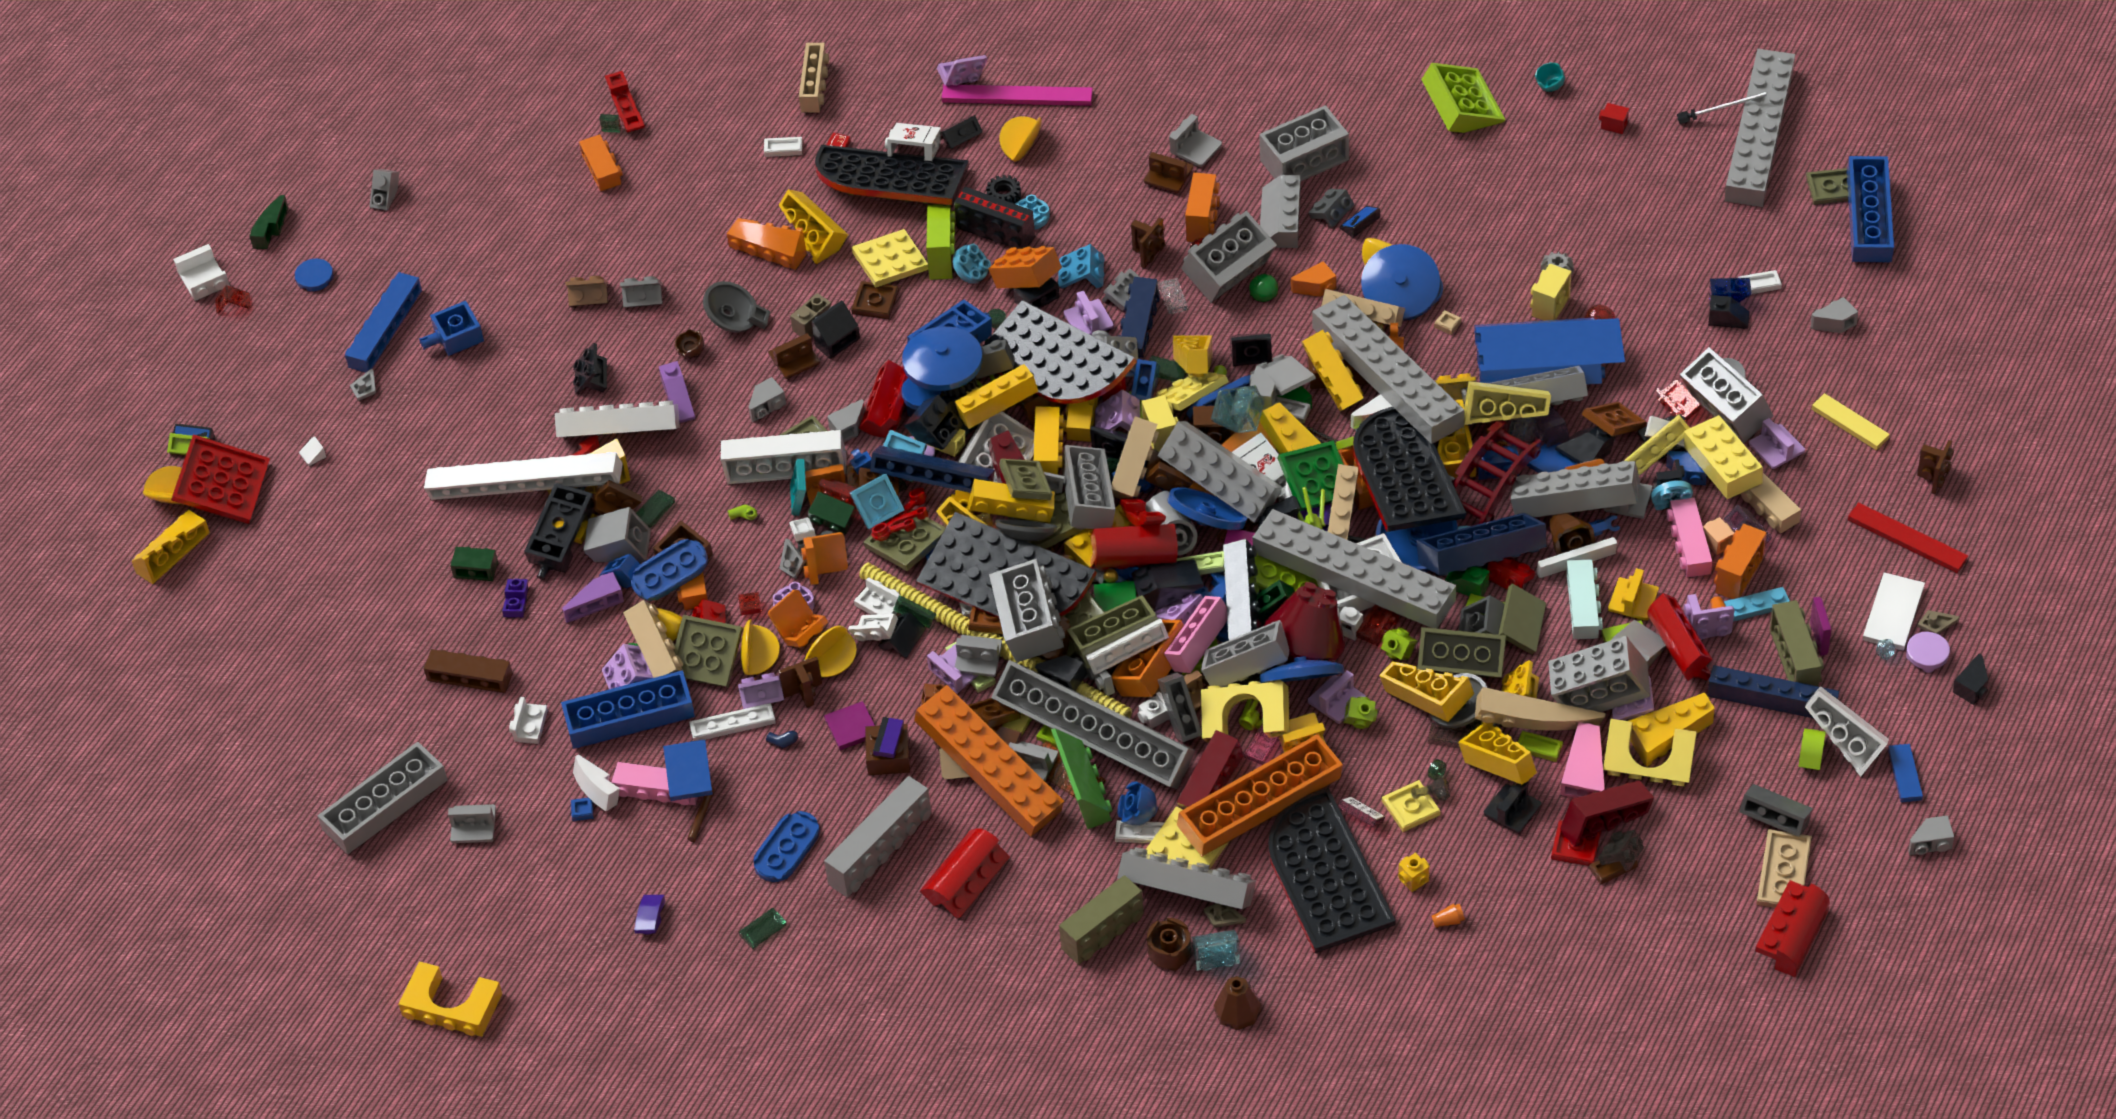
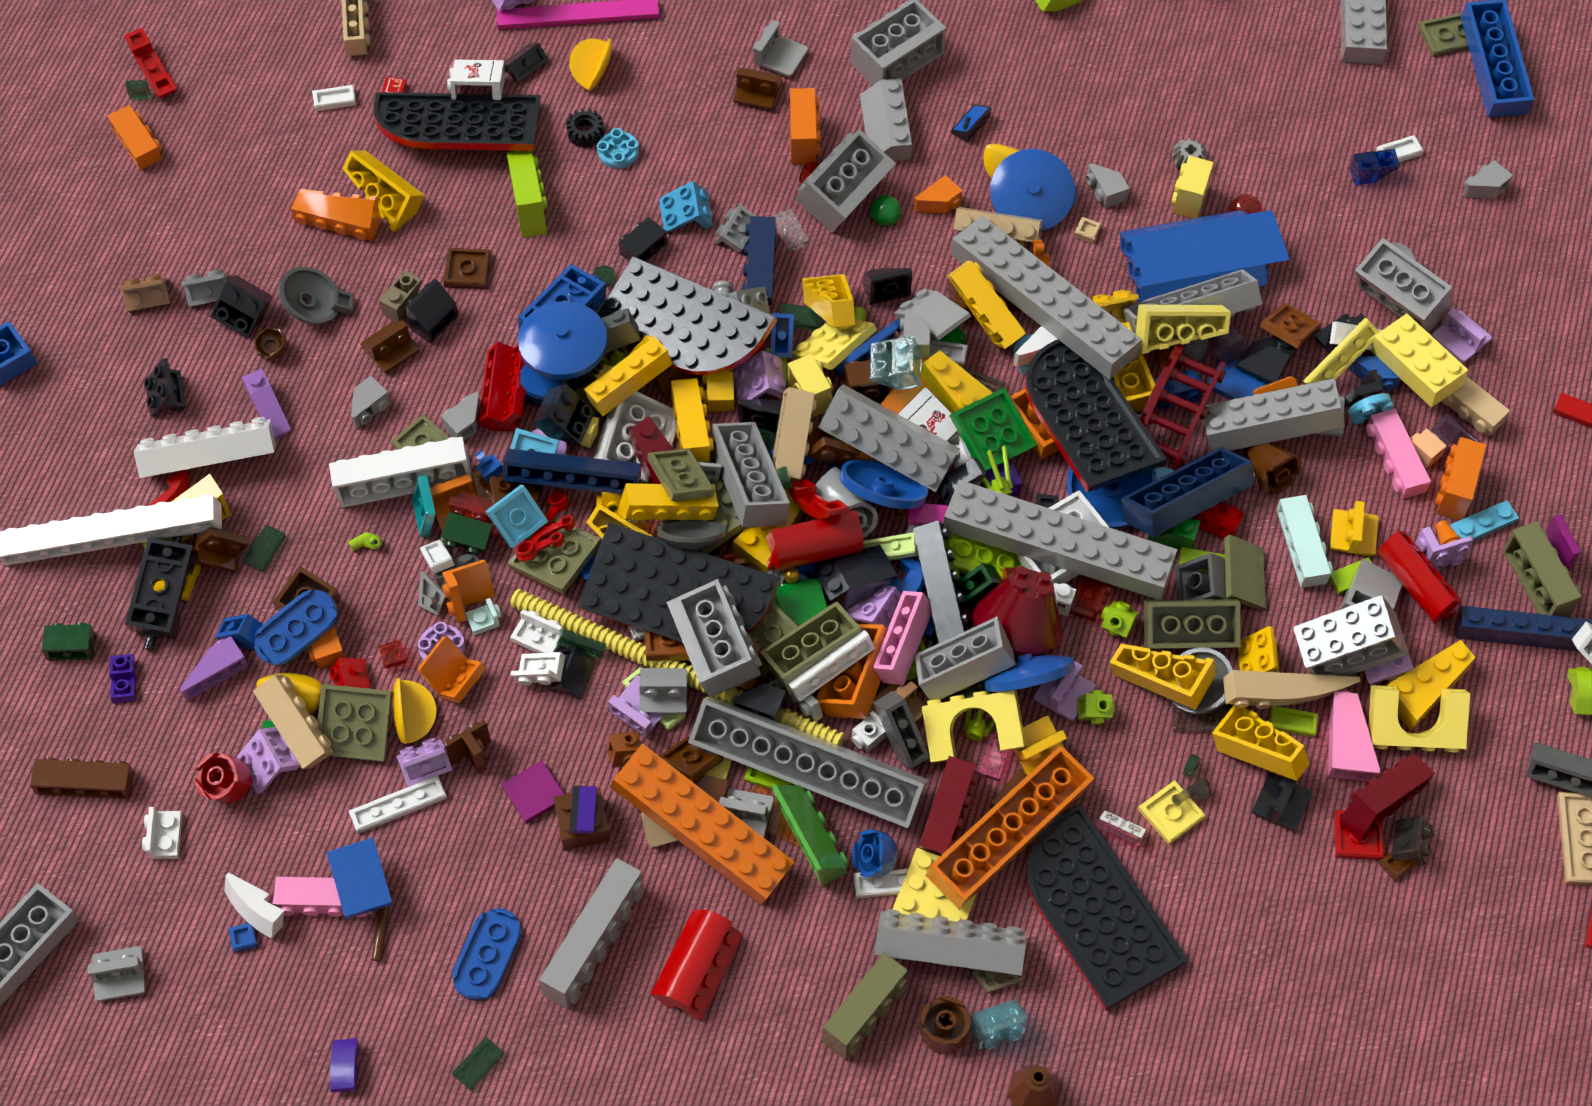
camera: 15 degrees left, 10 degrees up
(585, 678) = (223, 778): none -> red brick
(616, 536) = (228, 591): light grey slope -> none
(628, 709) = (276, 807): blue brick -> none
(669, 310) = (241, 306): none -> black slope
(783, 740) = (459, 821): dark blue arm -> none
(834, 584) = (484, 618): none -> light aqua bracket
(834, 651) = (498, 705): yellow piece -> none
(890, 258) = (475, 217): light yellow plate -> none
(971, 263) = (566, 216): medium azure tile -> none
(994, 219) = (582, 161): black brick -> none
(1025, 267) = (628, 216): orange brick -> none
(1088, 315) = (704, 264): lavender bracket -> none
(1118, 492) = (785, 477): none -> clear green tile
(1147, 240) = (752, 169): reddish brown bracket -> none
(1332, 206) = (938, 109): dark grey bracket -> none
(1343, 500) = (1029, 461): tan brick -> none
(1345, 443) = (1017, 383): lime tile -> none
(1413, 871) = (1195, 896): yellow brick -> none
(1449, 916) = (1243, 945): orange cone -> none
(1474, 285) = (1108, 185): none -> light grey slope
(1590, 552) = (1284, 491): white tile -> none
(1600, 525) = (1304, 449): blue plate -> none
(1679, 400) = (1350, 295): clear red bracket -> none
(1727, 313) = (1376, 189): black slope -> none
(1850, 421) = (1529, 299): light yellow tile -> none

